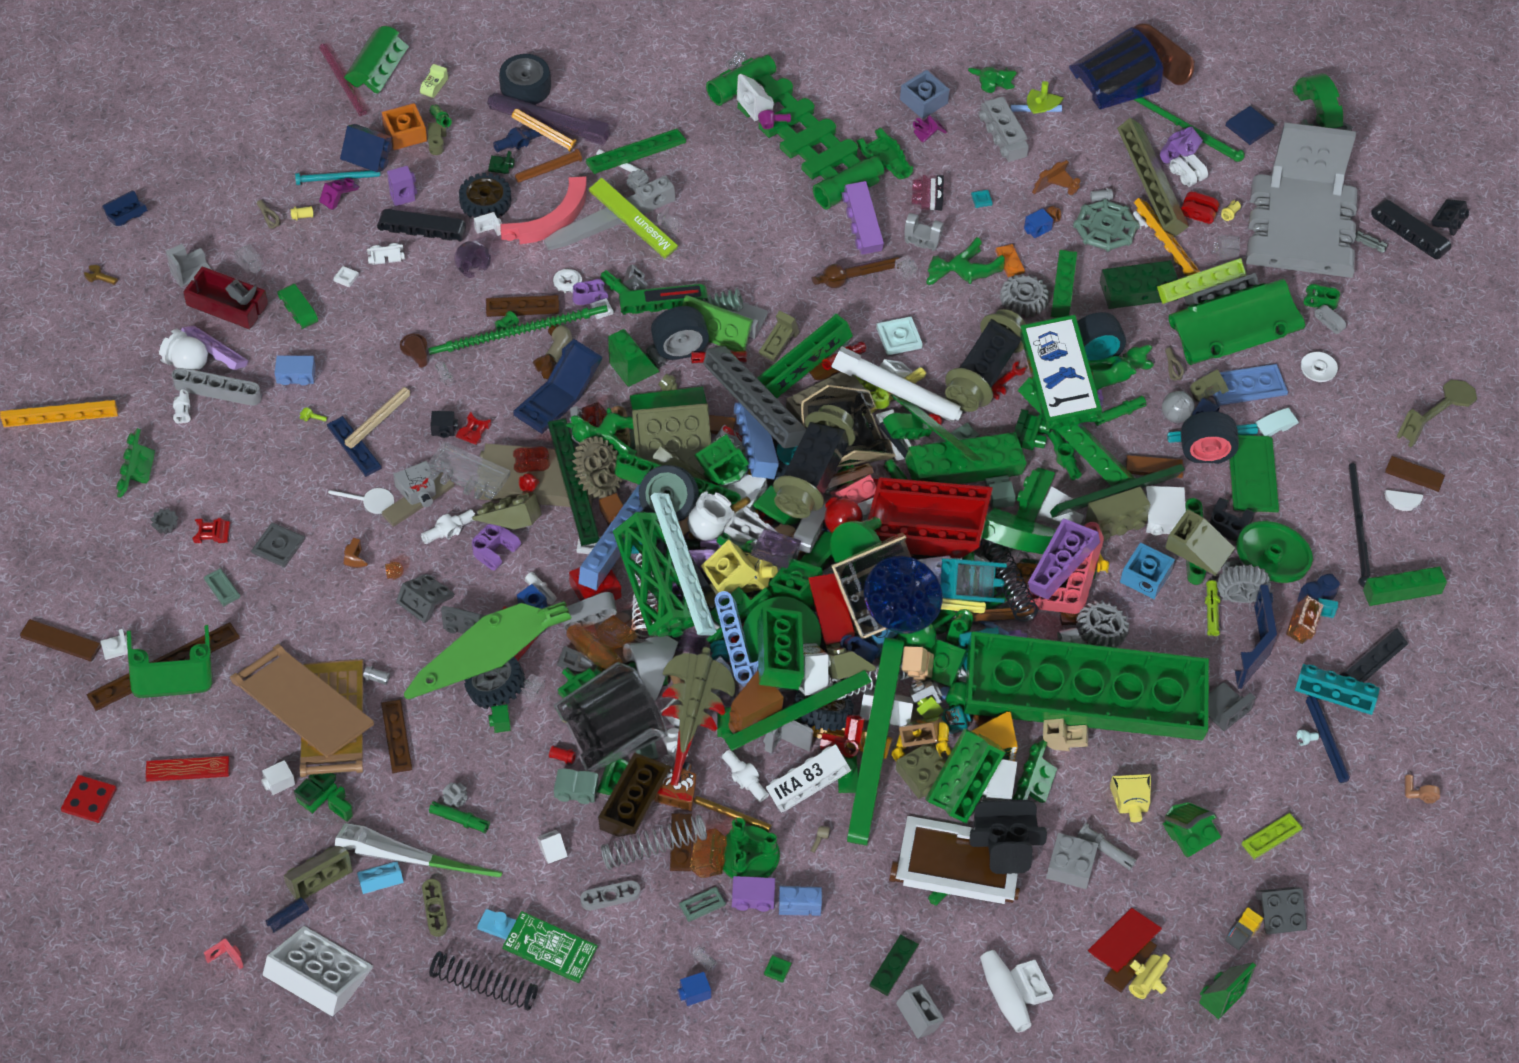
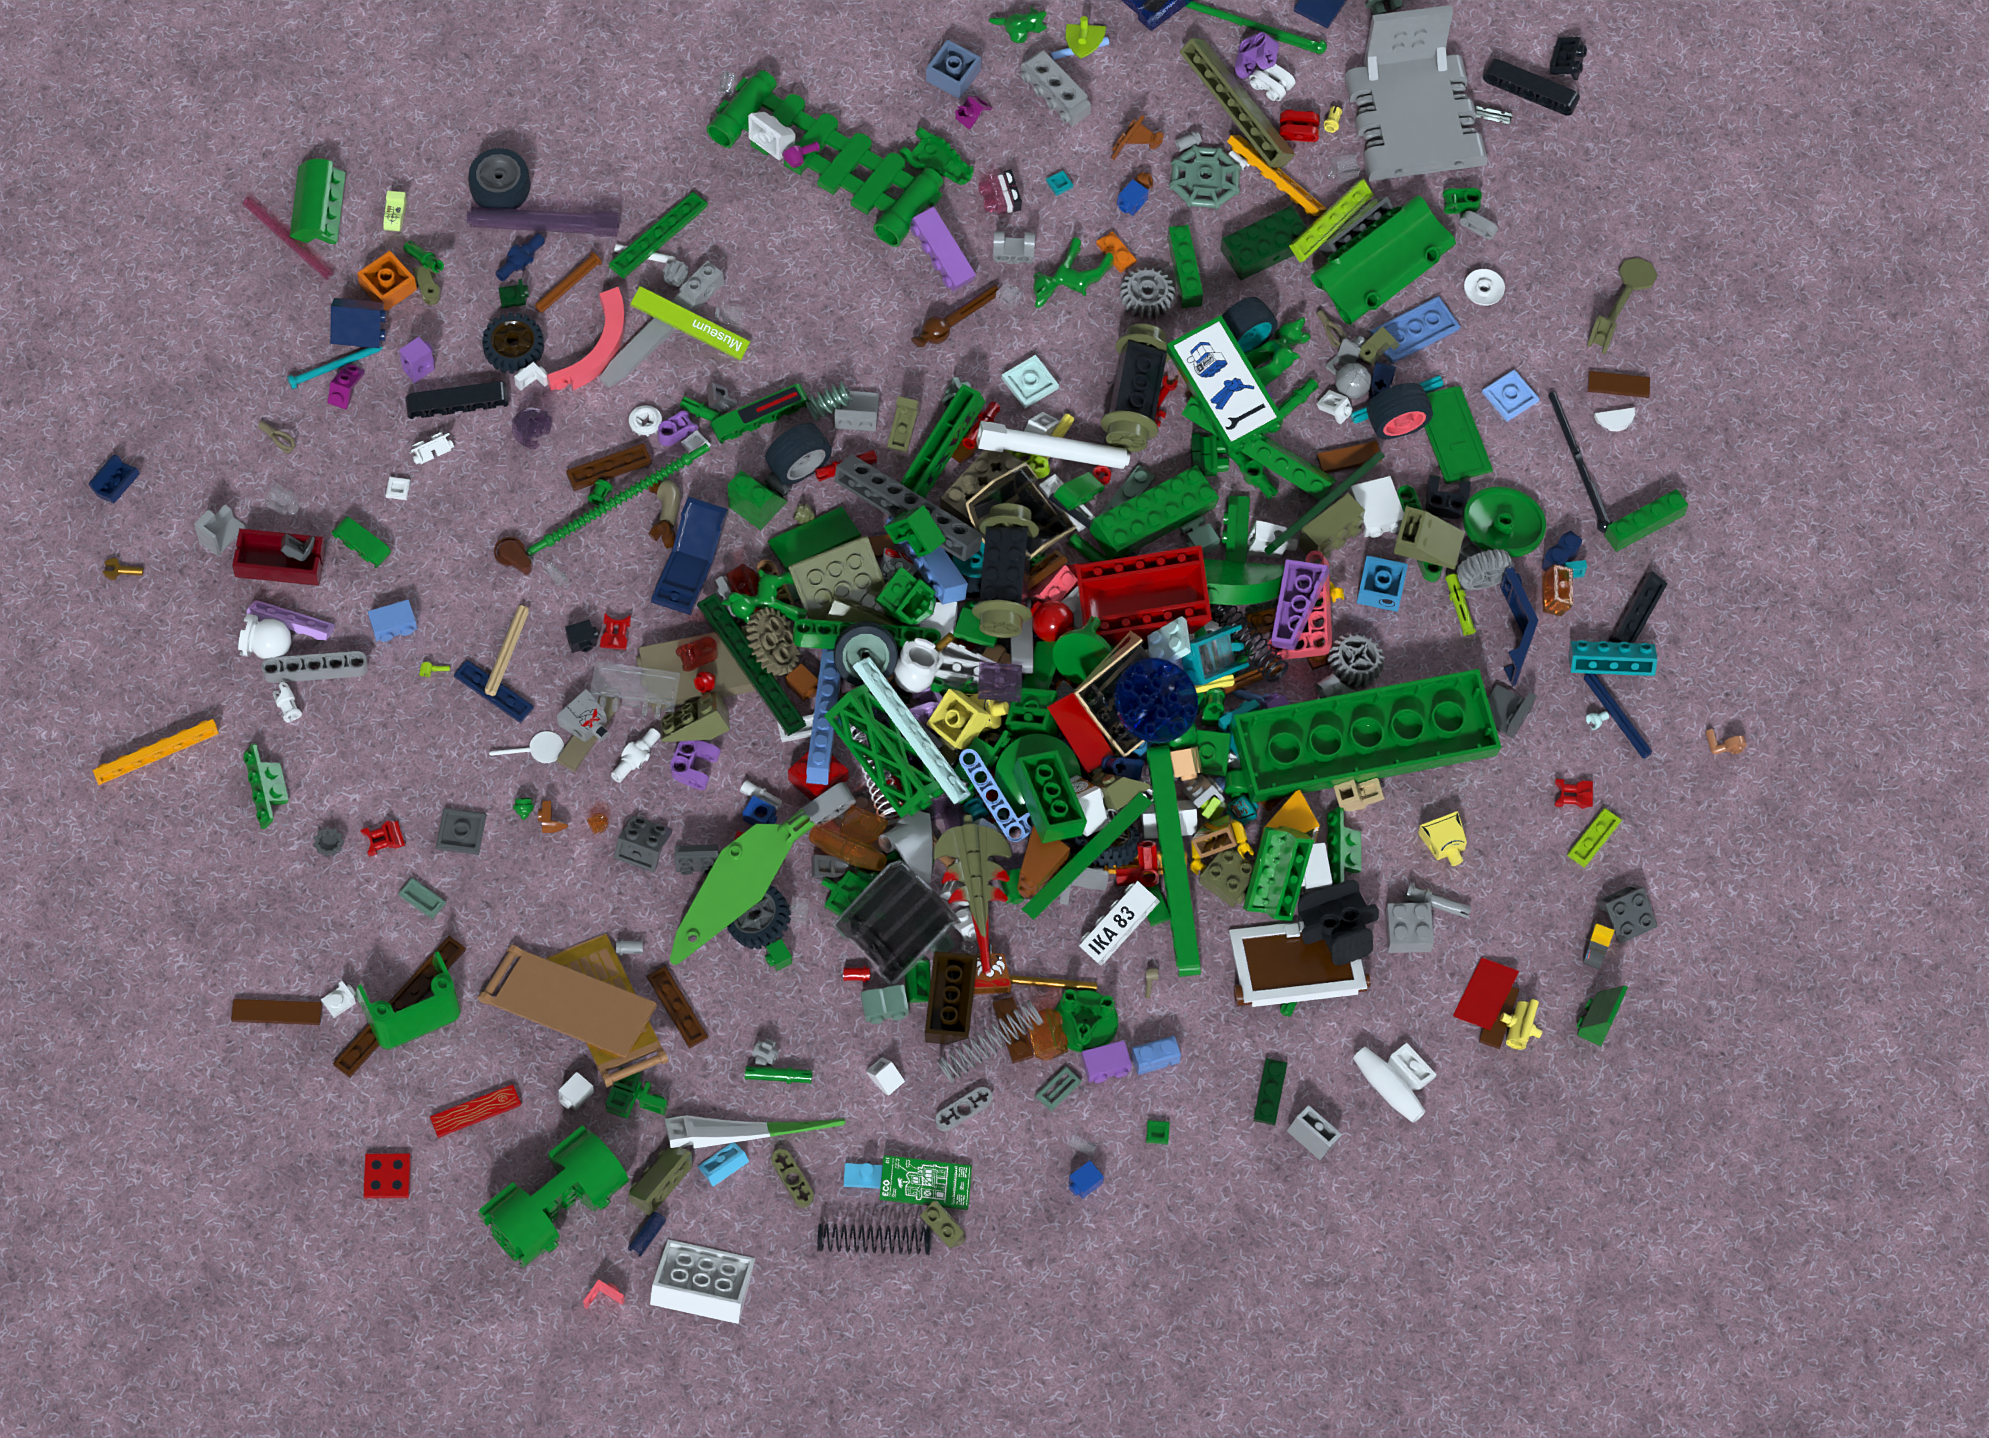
camera: 20 degrees left, 10 degrees up
(183, 866) = (524, 1222): none -> green cylinder
(304, 212) = (314, 424): light yellow pin -> none
(337, 540) = (523, 807): none -> green plate
(544, 129) = (546, 239): light orange axle -> none
(549, 988) = (943, 1225): none -> olive bracket
(723, 326) = (842, 429): bright green tile -> none
(745, 775) = (1051, 938): white pin -> none
(752, 410) = (916, 528): none -> green brick
(937, 554) = (1170, 641): none -> light aqua plate
(942, 432) = (1118, 488): green piece -> none
(1157, 422) = (1336, 405): none -> white bracket
(1181, 383) = (1347, 353): none -> light grey bracket
(1191, 827) = (1513, 854): green piece -> none
(1273, 796) = (1583, 792): none -> red piece
(1277, 421) = (1460, 366): light aqua slope -> none
(1314, 456) = (1510, 395): none -> light blue tile

